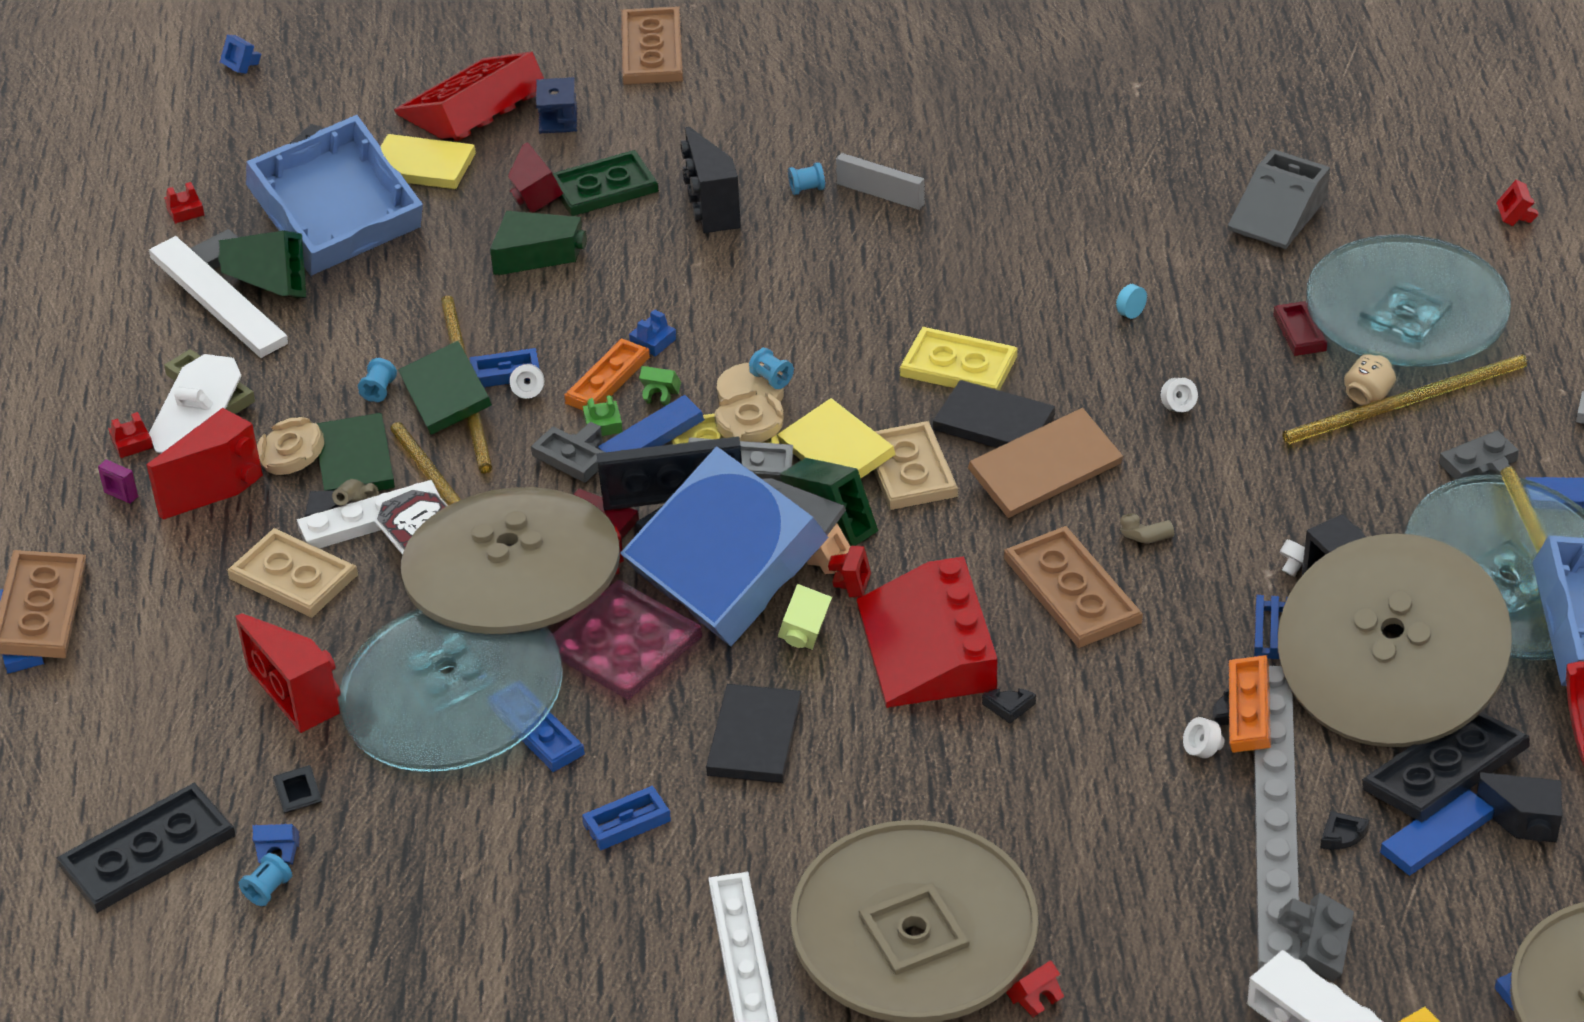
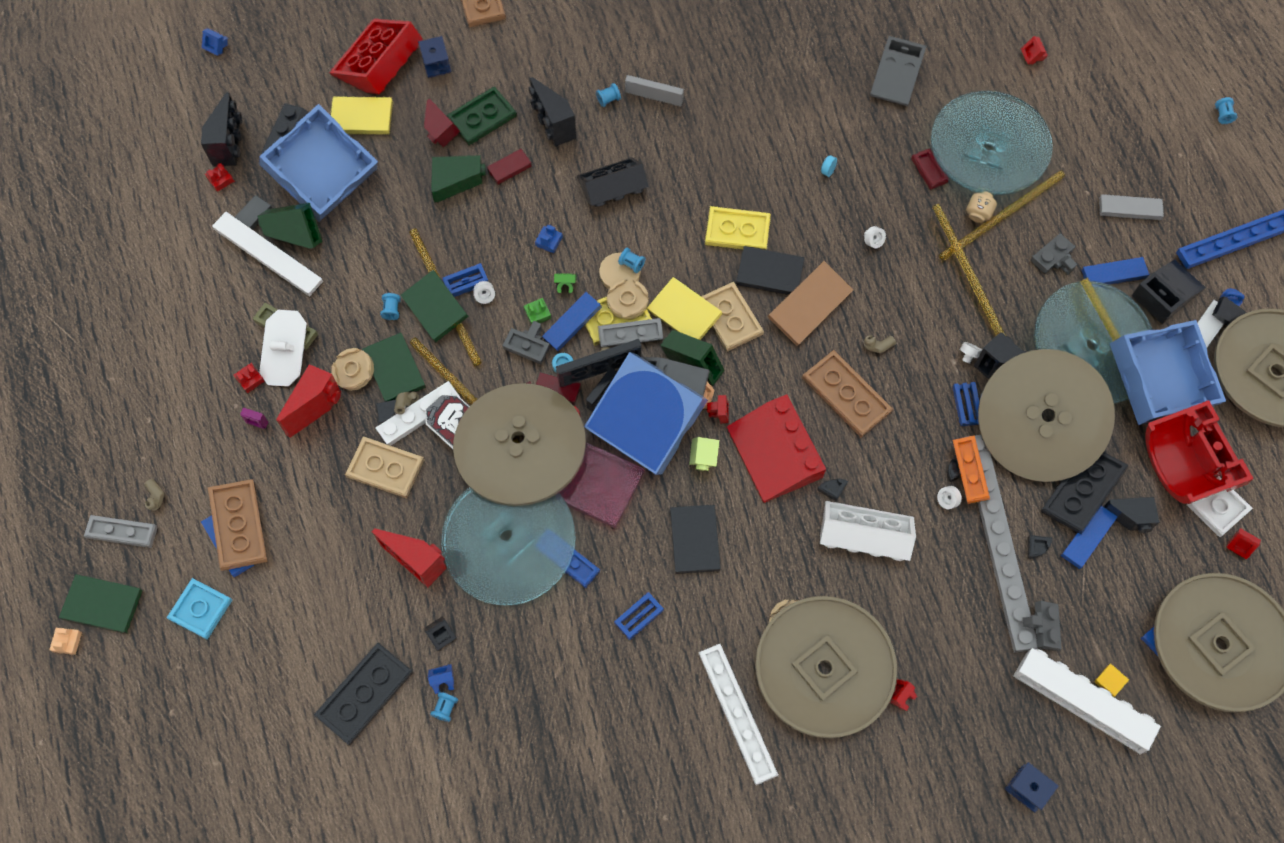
camera: 15 degrees left, 25 degrees up
(208, 147) = (222, 133): none -> black slope
(607, 374) = (530, 276): orange tile -> none
(623, 244) = (509, 166): none -> dark red tile
(777, 277) = (613, 181): none -> black slope
(1045, 761) = (868, 531): none -> white slope
(1319, 441) = (968, 269): none -> clear yellow piece

